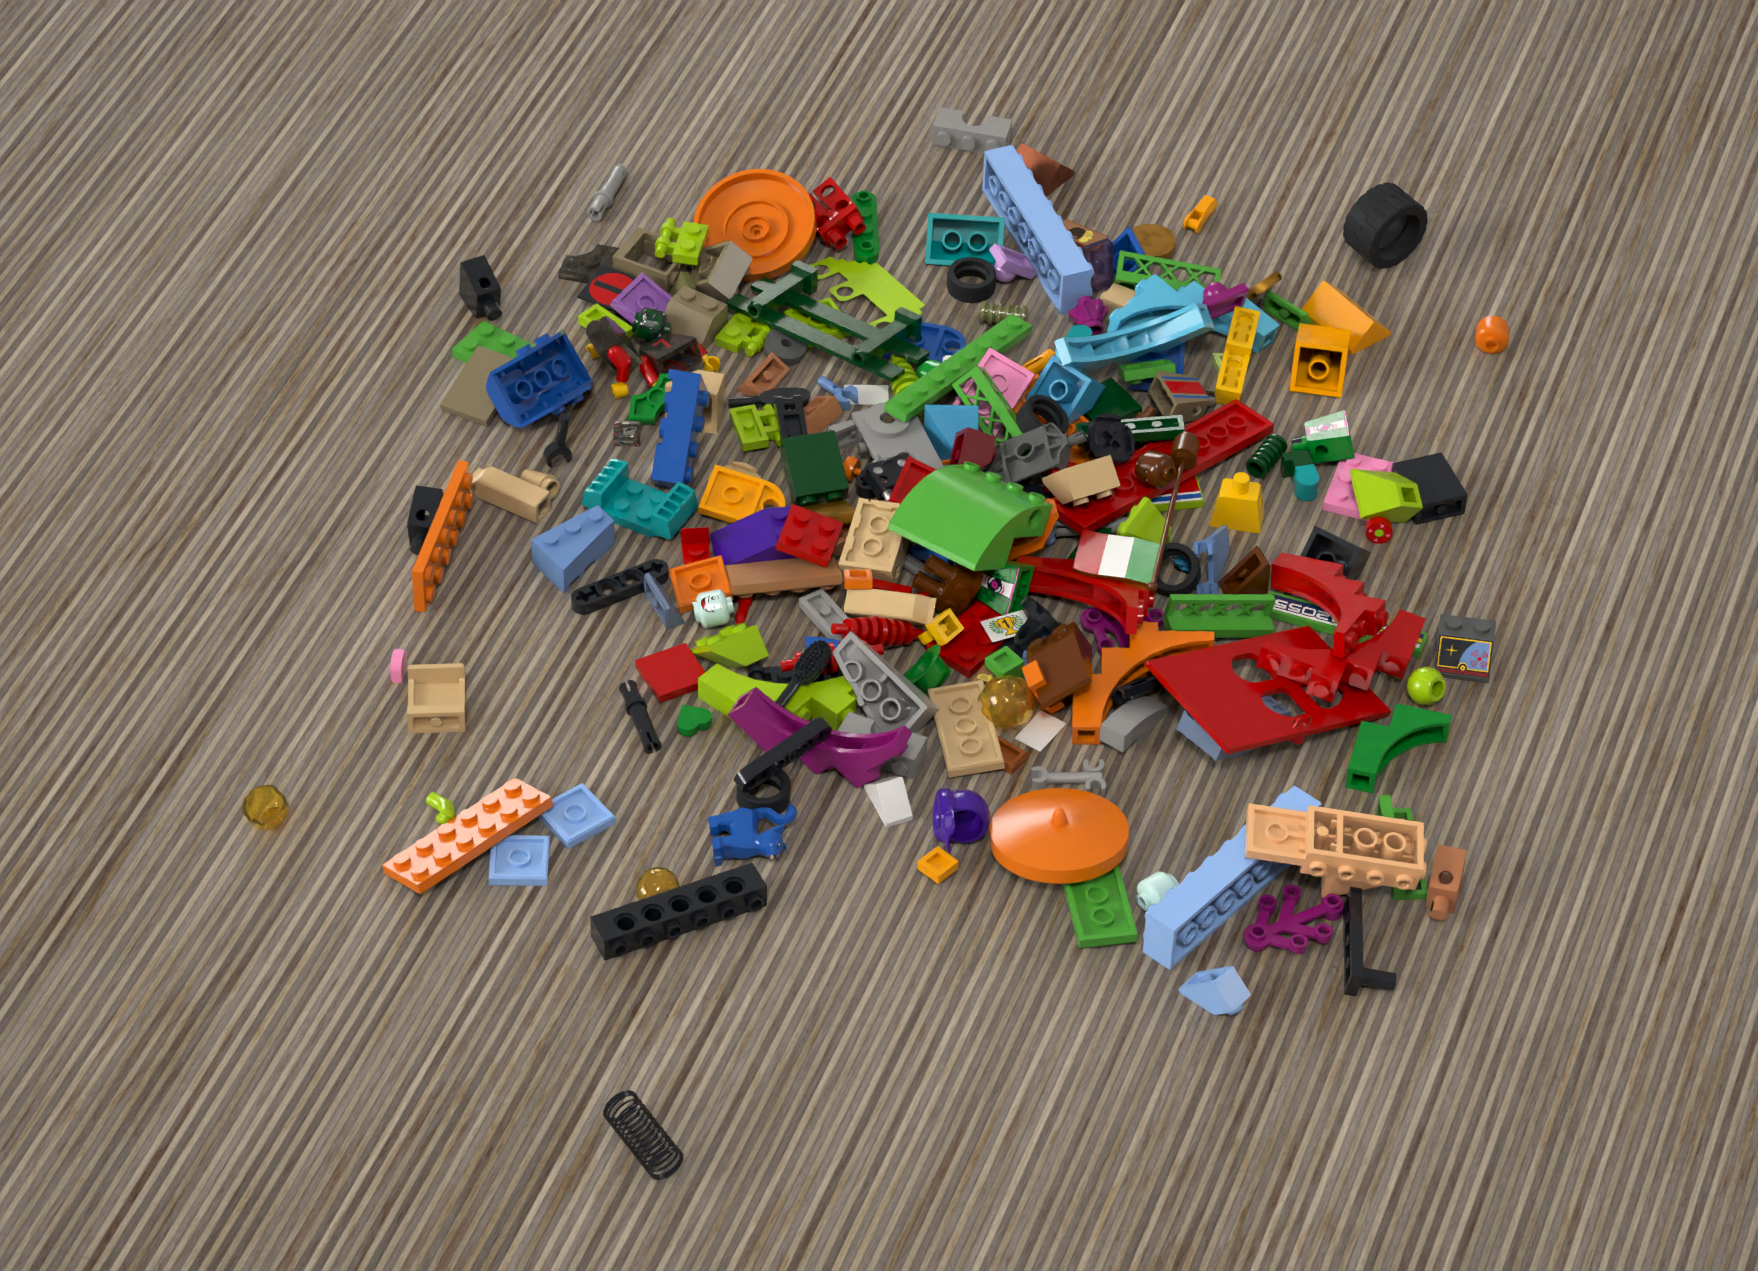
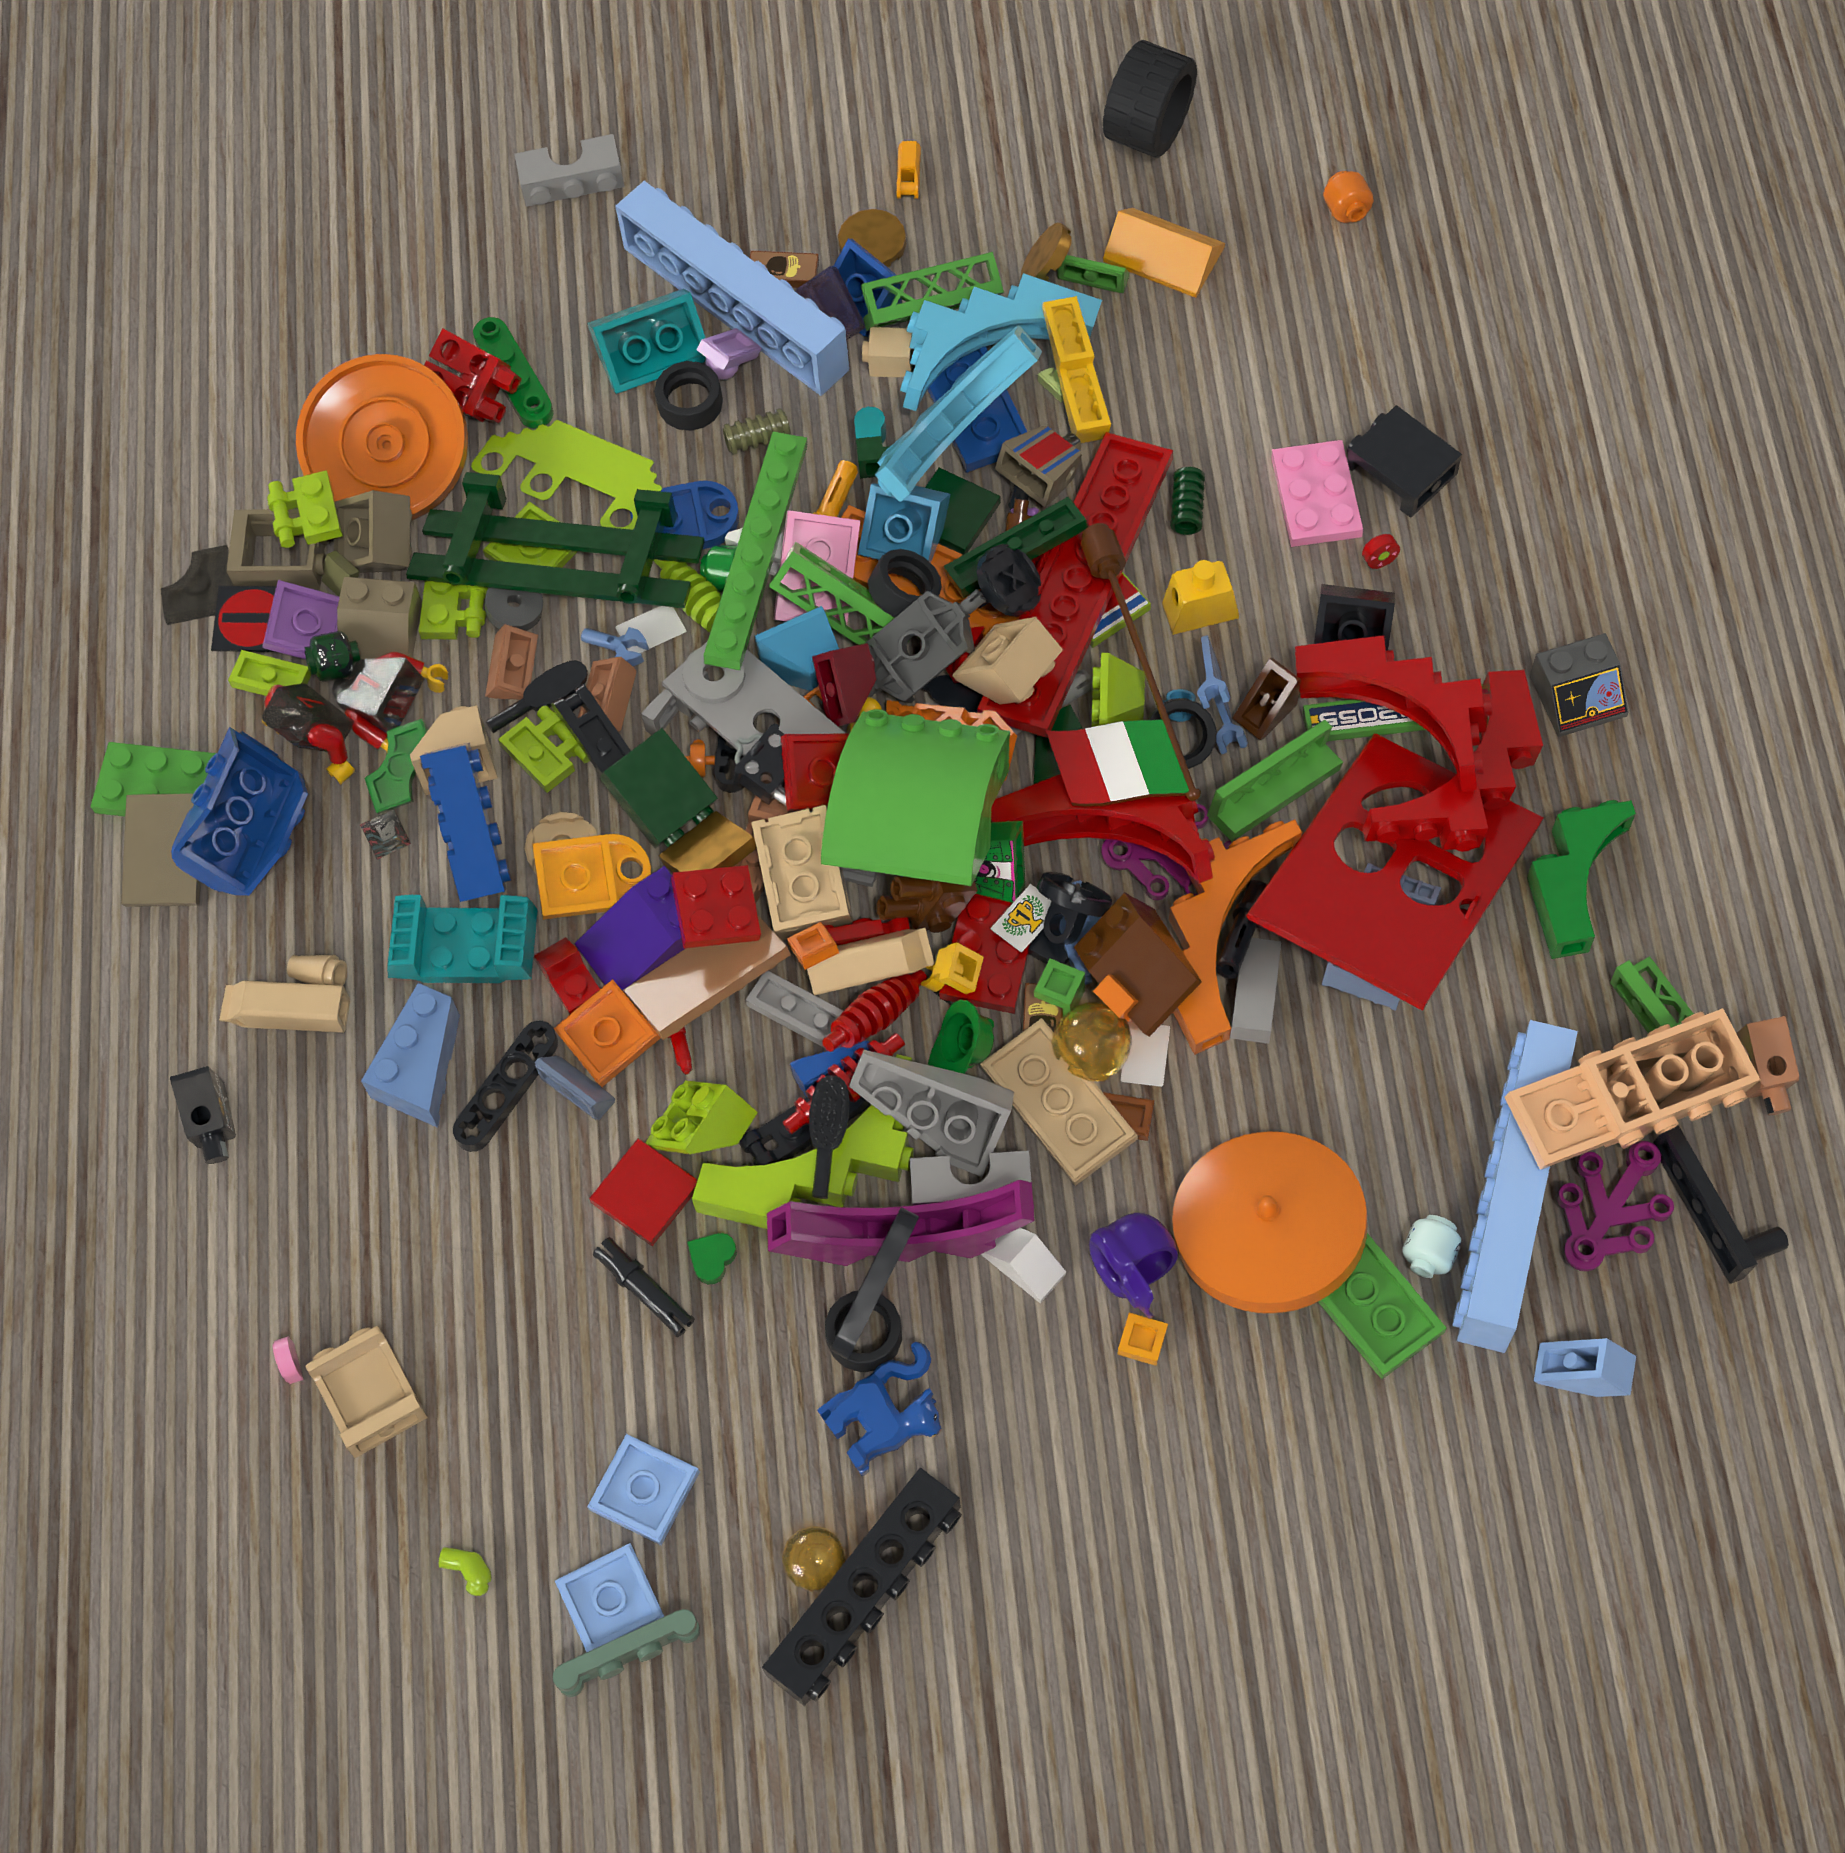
camera: 20 degrees left, 20 degrees up
(265, 807) = (235, 1696): clear yellow hair -> none
(442, 536) = (238, 1121): orange plate -> none
(467, 835) = (525, 1601): plate -> none
(480, 288) = (82, 700): black torso -> none
(513, 882) = (609, 1658): none -> sand green plate
(559, 446) = (315, 901): black piece -> none
(604, 197) = (162, 476): light grey pin -> none
(712, 608) = (646, 1070): light aqua head -> none
(1045, 170) = (686, 186): copper slope -> none
(1089, 313) = (862, 385): magenta rock -> none
(1090, 777) = (1247, 1098): light grey bar -> none
(1135, 372) = (982, 443): bright green plate -> none
(1156, 469) = (1086, 598): reddish brown head -> none
(1223, 300) = (1024, 303): magenta tile -> none
(1302, 472) = (1245, 509): leg -> none
(1320, 360) = (1173, 326): light orange slope -> none
(1326, 438) = (1249, 445): green torso -> none
(1385, 495) = (1368, 499): lime slope -> none
(1426, 686) = (1570, 765): lime piece -> none

